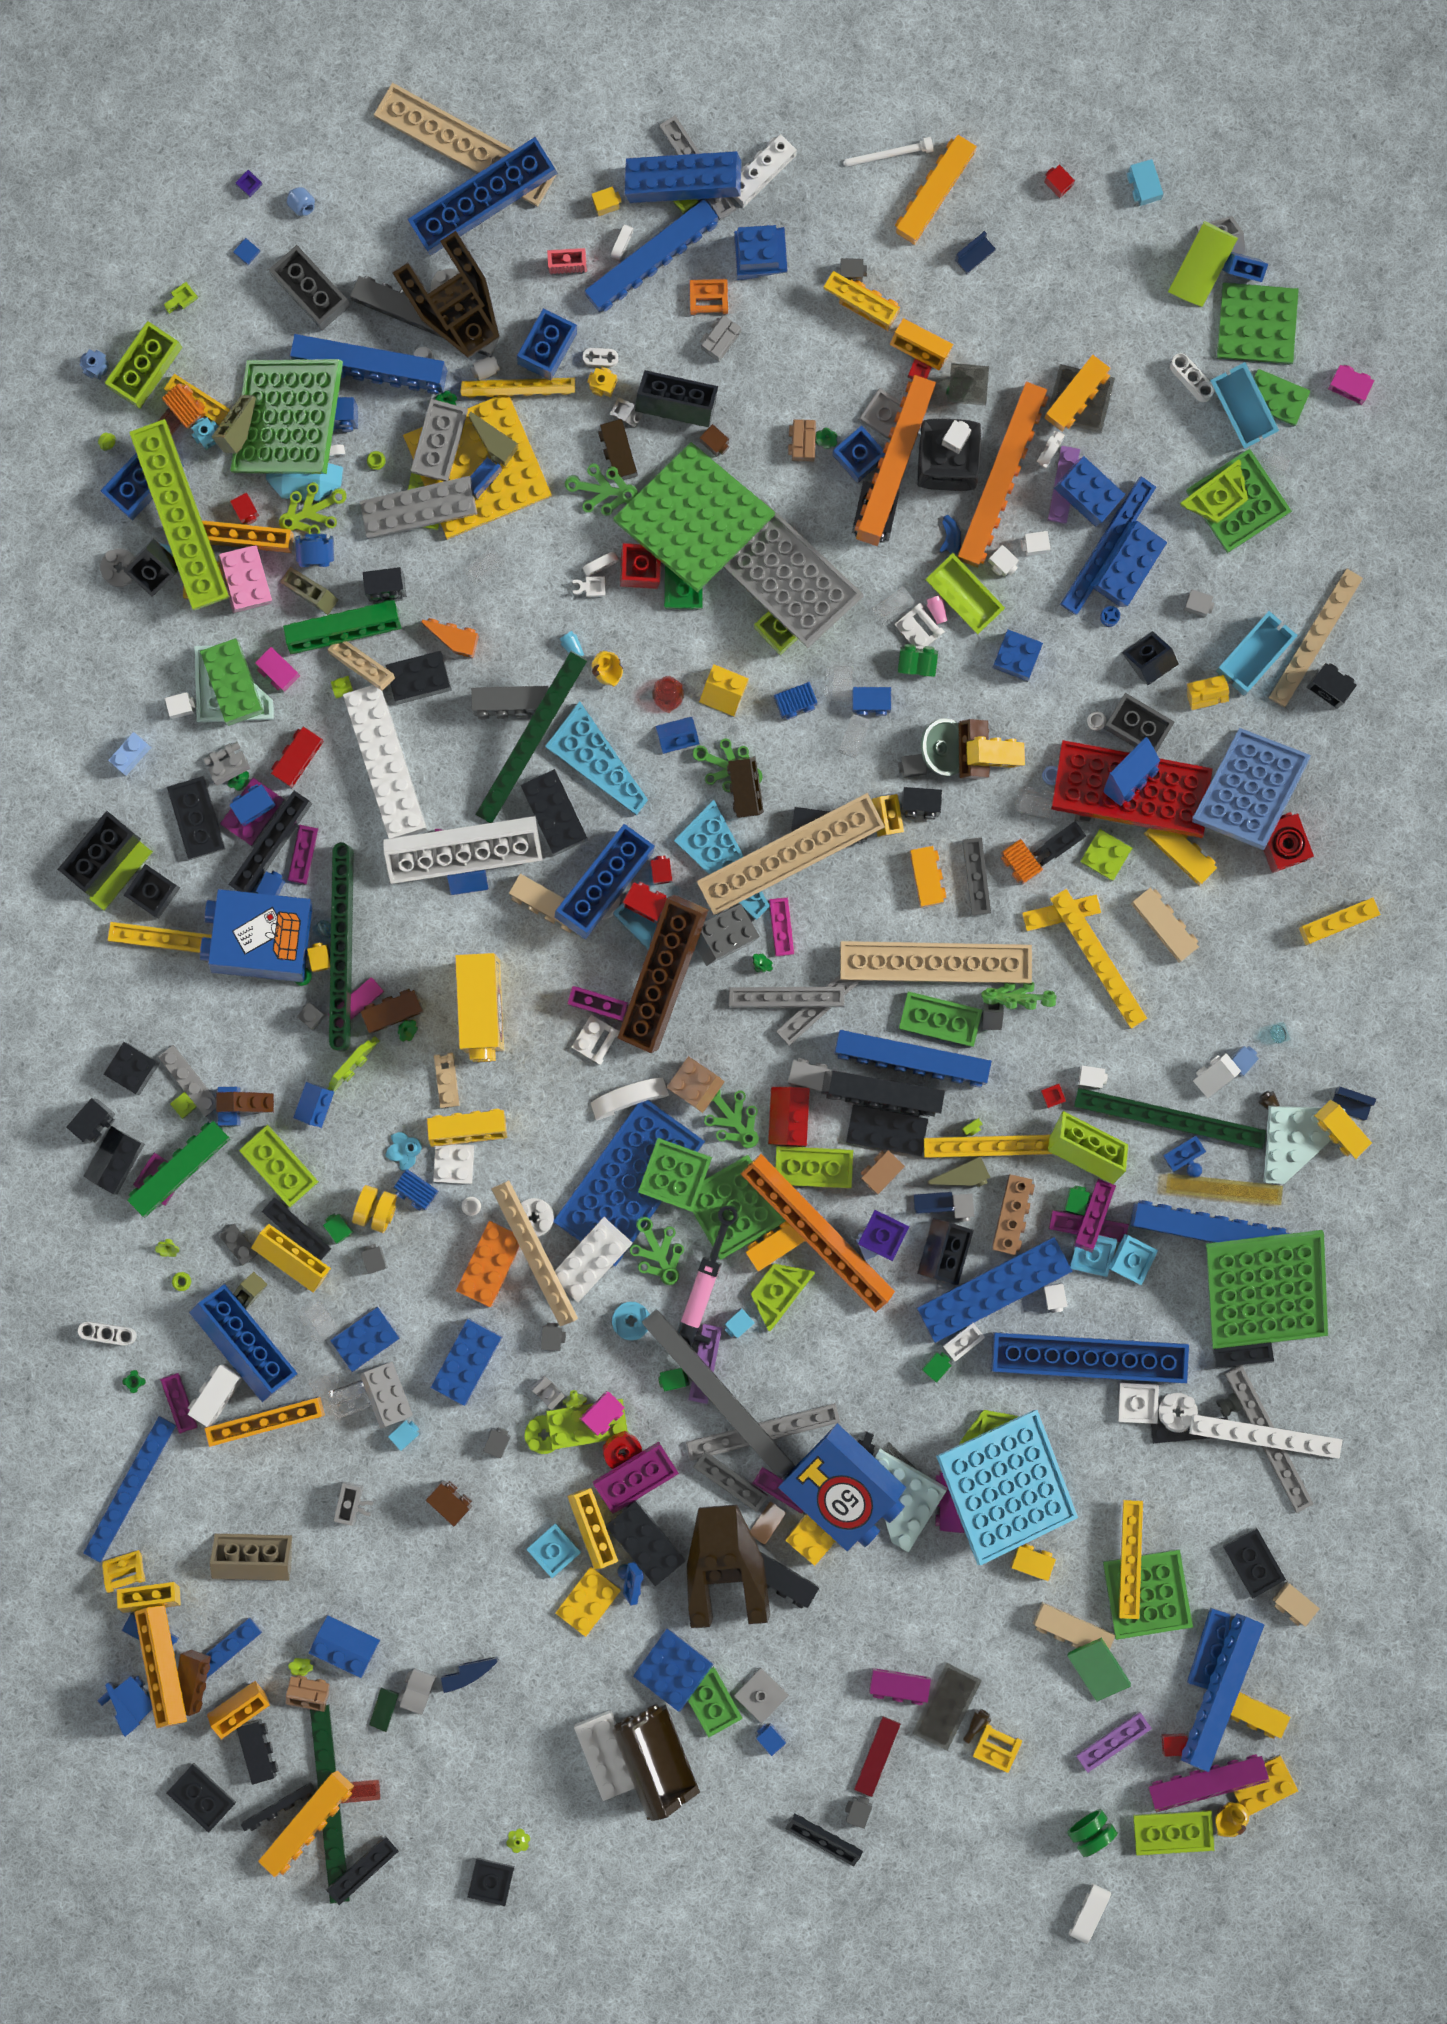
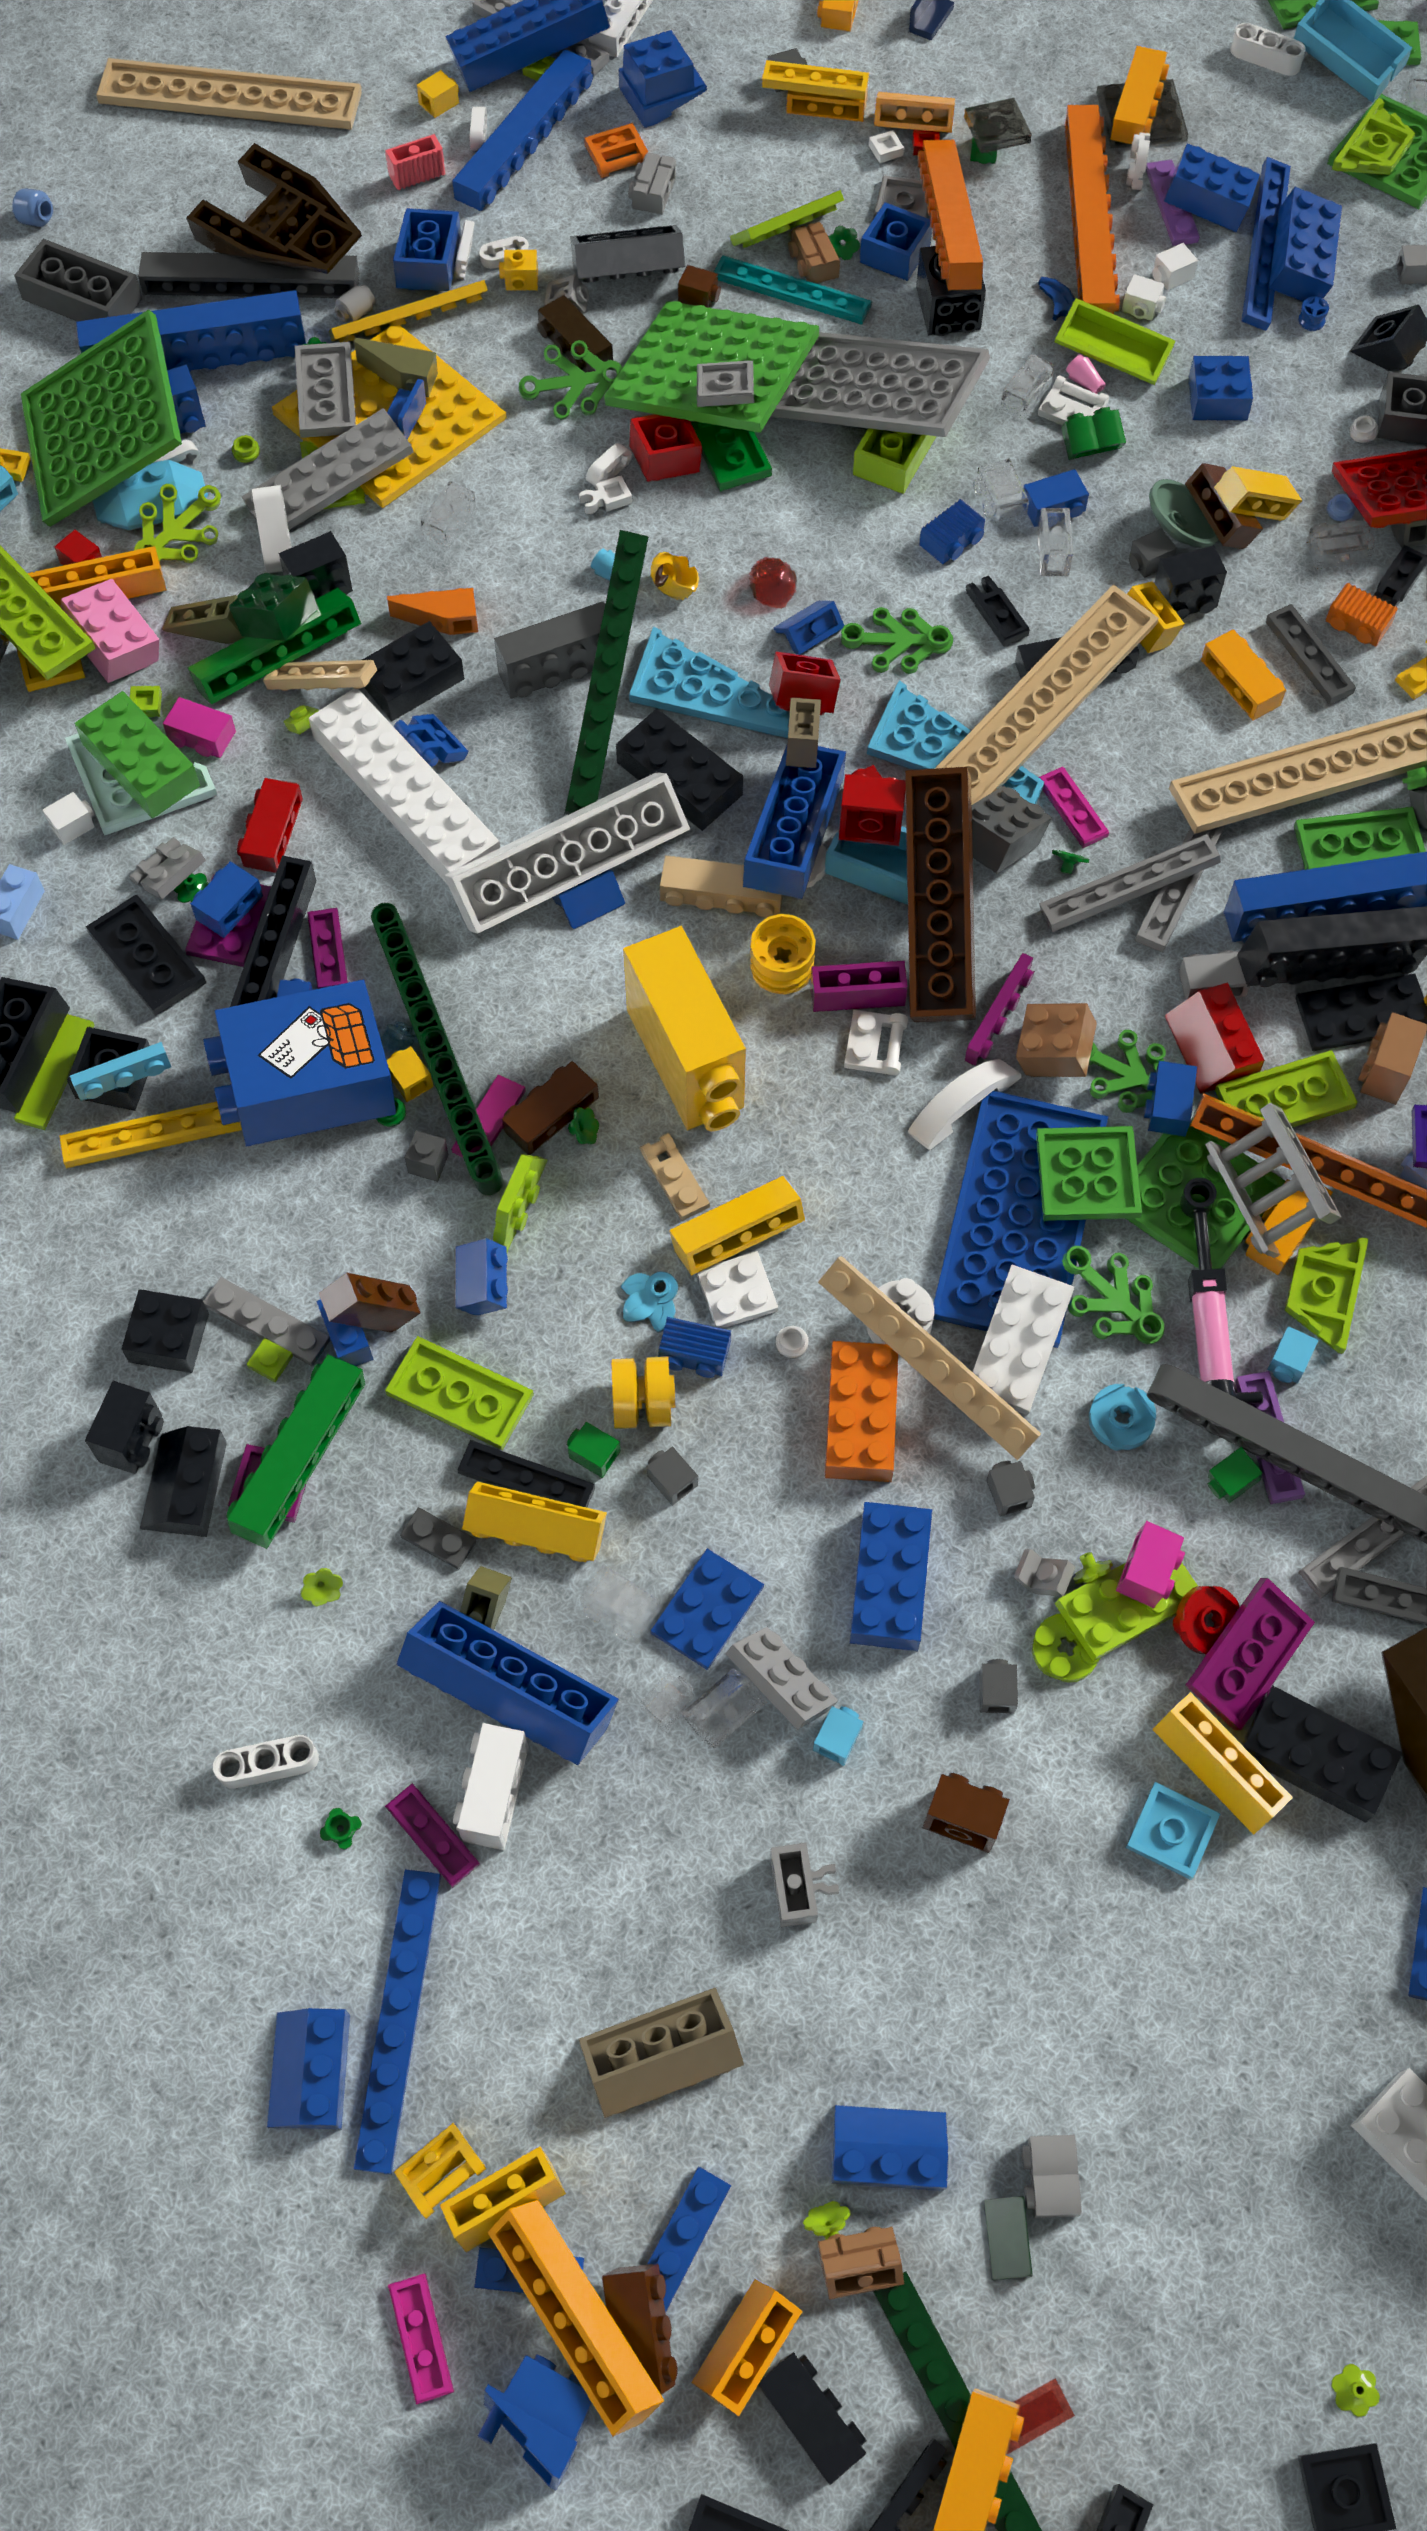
camera: 25 degrees left, 20 degrees down
(77, 1497) = (309, 2069): none -> blue slope
(88, 1643) = (421, 2338): none -> dark pink tile
(153, 907) = (120, 1071): none -> medium azure plate
(177, 1286) = (359, 1623): lime plate -> none
(235, 426) = (31, 460): olive slope -> none
(251, 635) = (147, 699): none -> lime plate
(264, 1421) = (593, 1802): light orange brick -> none
(314, 550) = (198, 564): blue brick -> none
(347, 607) = (273, 606): none -> dark green brick
(369, 539) = (271, 525): none -> white beam
(417, 731) = (431, 739): none -> blue plate
(467, 1674) = (1127, 2107): dark blue slope -> none
(483, 195) = (276, 118): blue brick -> none
(553, 959) = (784, 939): none -> yellow wheel
(573, 348) = (464, 250): none -> white tile
(588, 1601) = (1270, 1896): yellow plate -> none
(629, 830) = (803, 732): none -> dark tan brick
(633, 1578) = (1332, 1824): blue plate -> none
(651, 785) = (804, 678): none -> red brick
(681, 1044) = (1006, 1000): none -> magenta plate
(687, 550) = (725, 383): none -> light grey plate
(724, 690) = (848, 549): yellow slope -> none
(742, 1148) = (1171, 1098): none -> blue brick
(745, 787) = (936, 645): dark brown brick -> none
(777, 461) = (792, 290): none -> teal tile
(783, 1227) = (1304, 1179): none -> light grey fence
(794, 407) = (787, 220): none -> lime plate
(798, 771) = (998, 612): none -> black hinge
(891, 363) = (886, 146): none -> white plate
(943, 468) = (1016, 194): black piece -> none
(956, 436) = (1021, 142): white brick -> none

